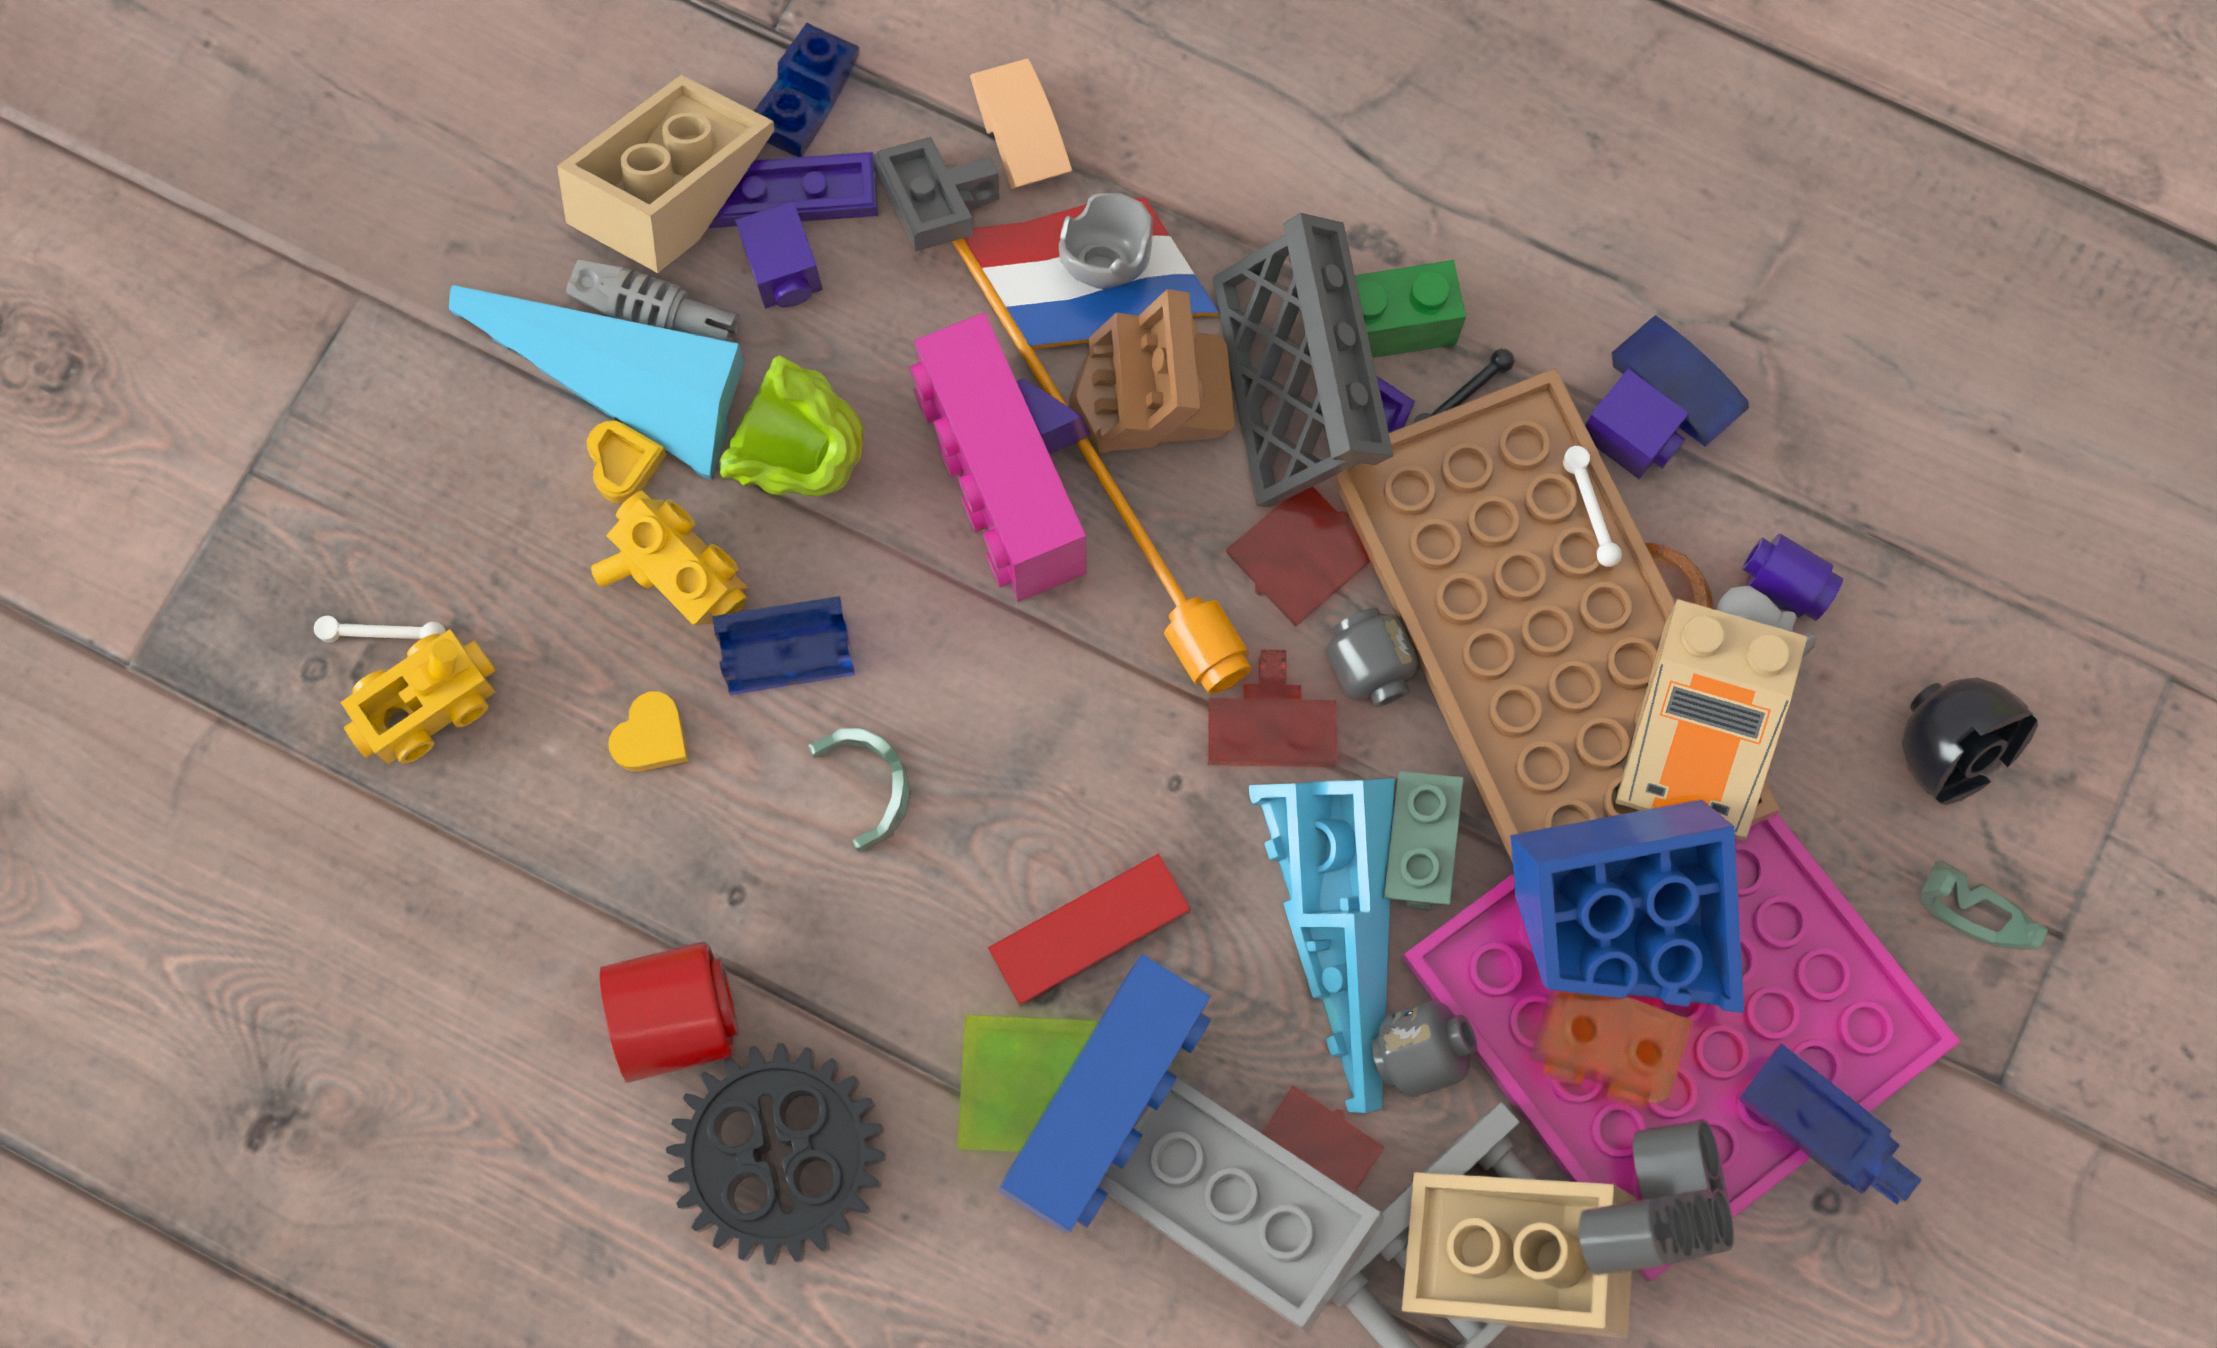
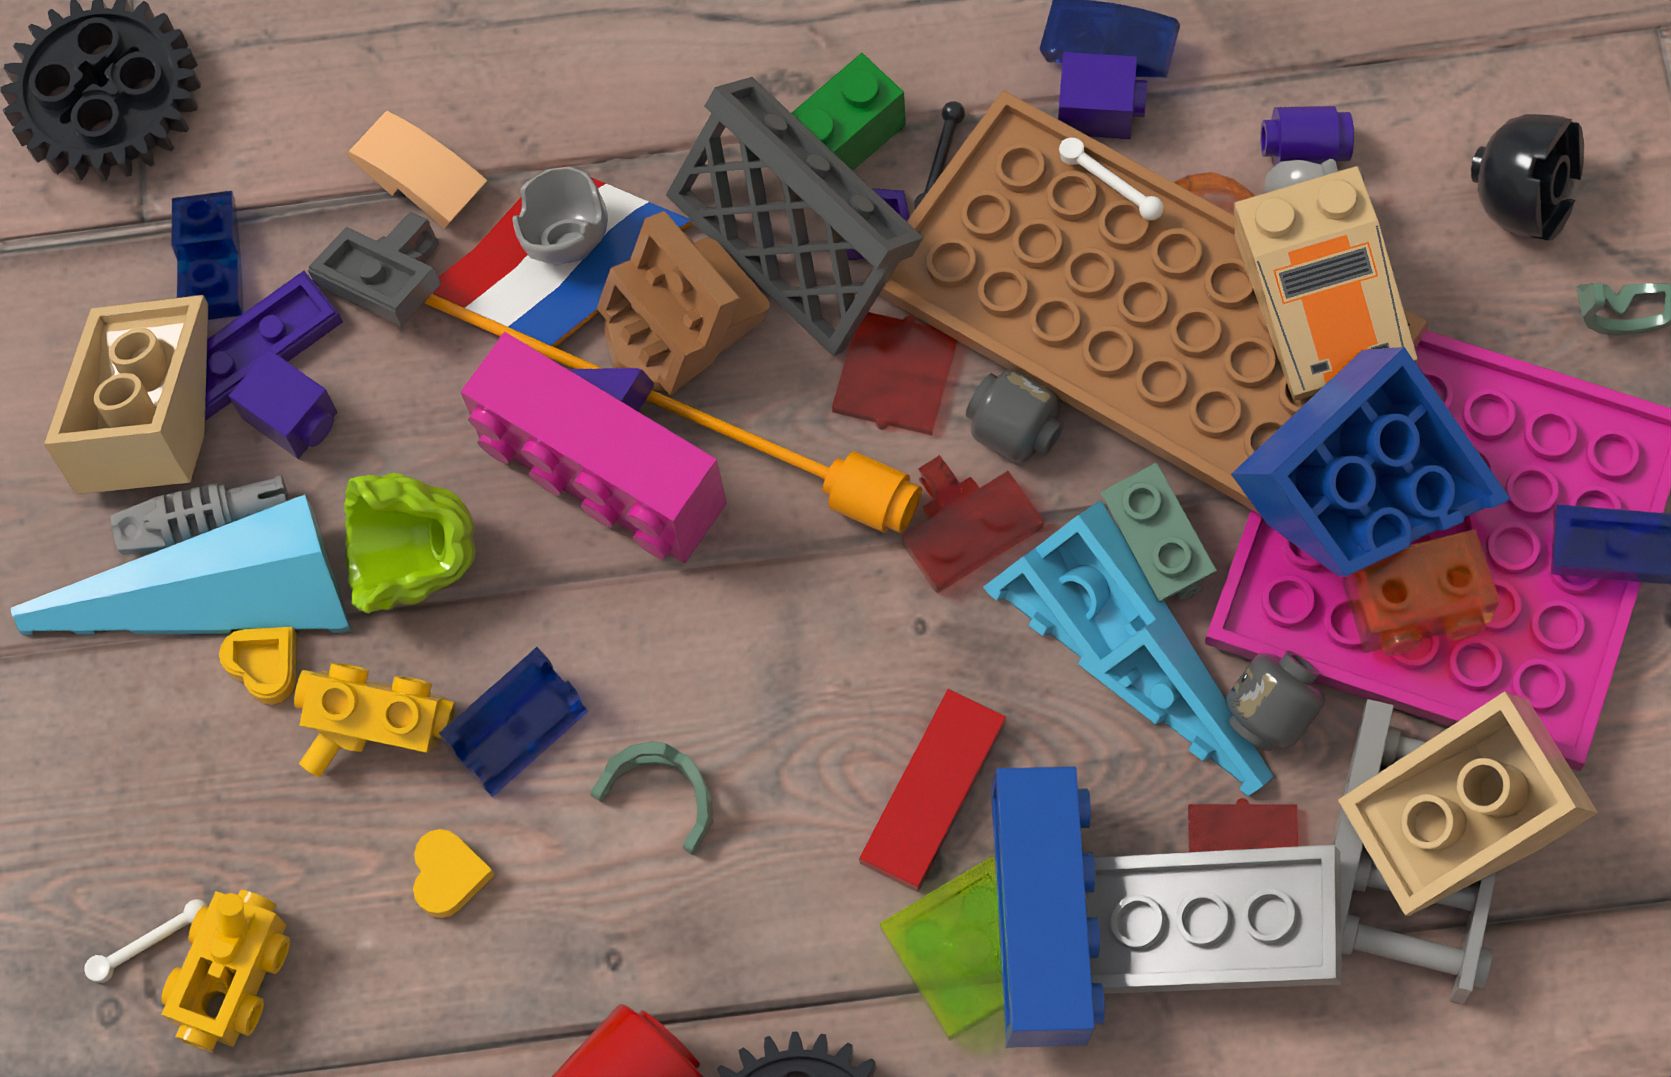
camera: 25 degrees left, 5 degrees down
(1681, 1206) = (1562, 680): dark grey beam -> none

